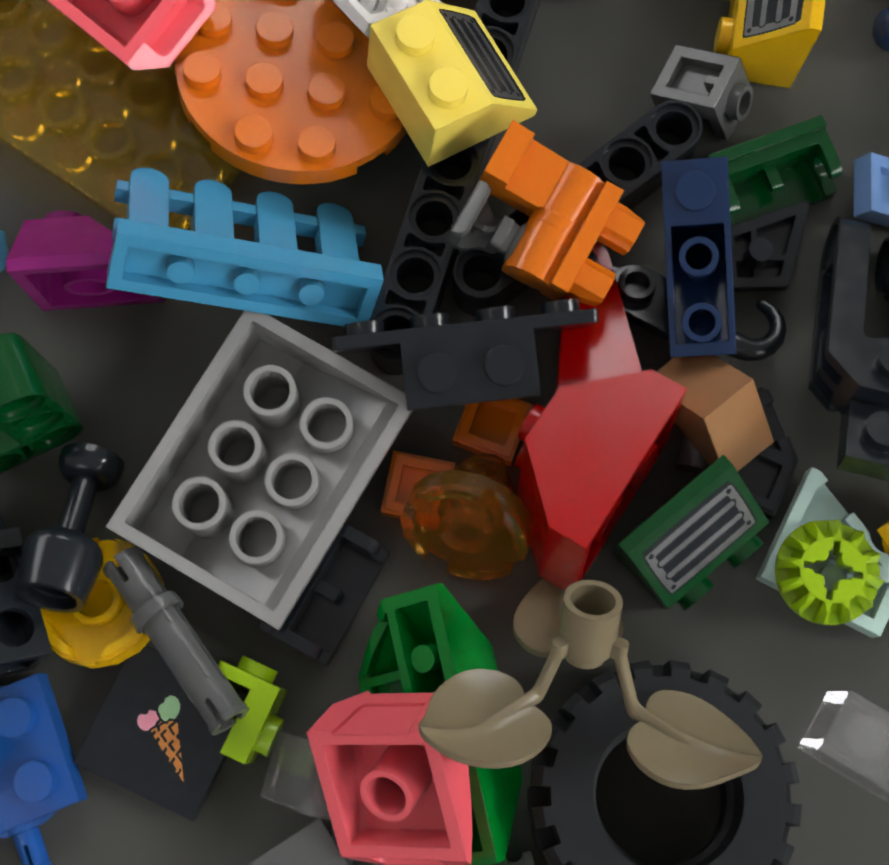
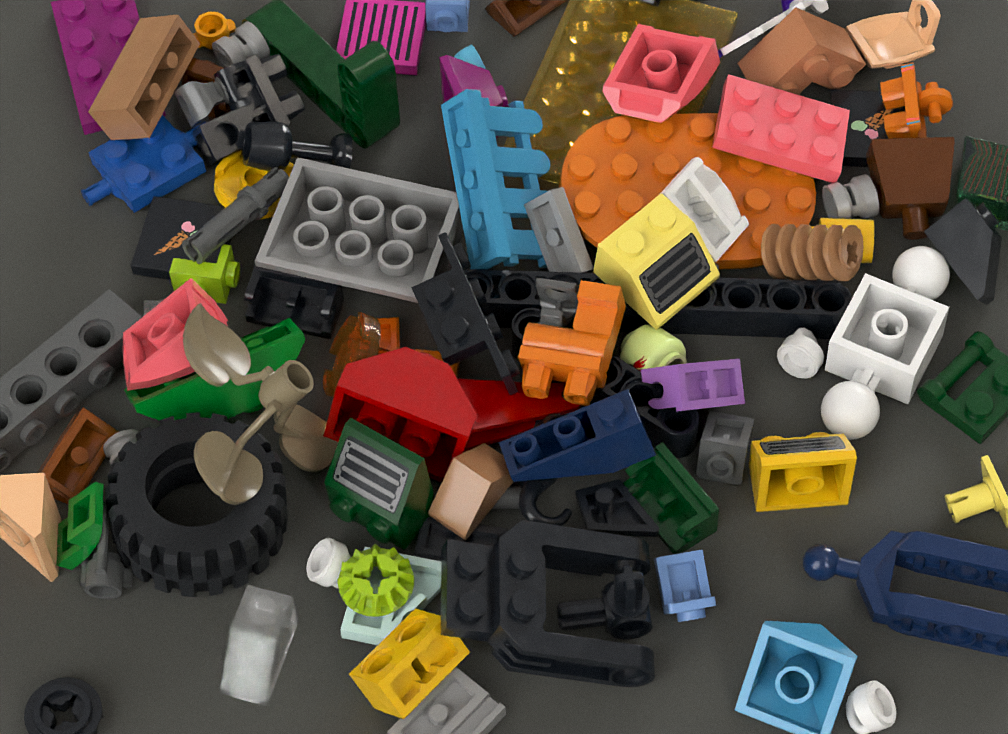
camera: 80 degrees right, 20 degrees down
(344, 199) = (558, 233): none -> light grey plate
(564, 127) = (652, 348): none -> yellowish green head
(630, 87) = (697, 385): none -> medium lavender hinge
(768, 631) = (326, 562): none -> white tile

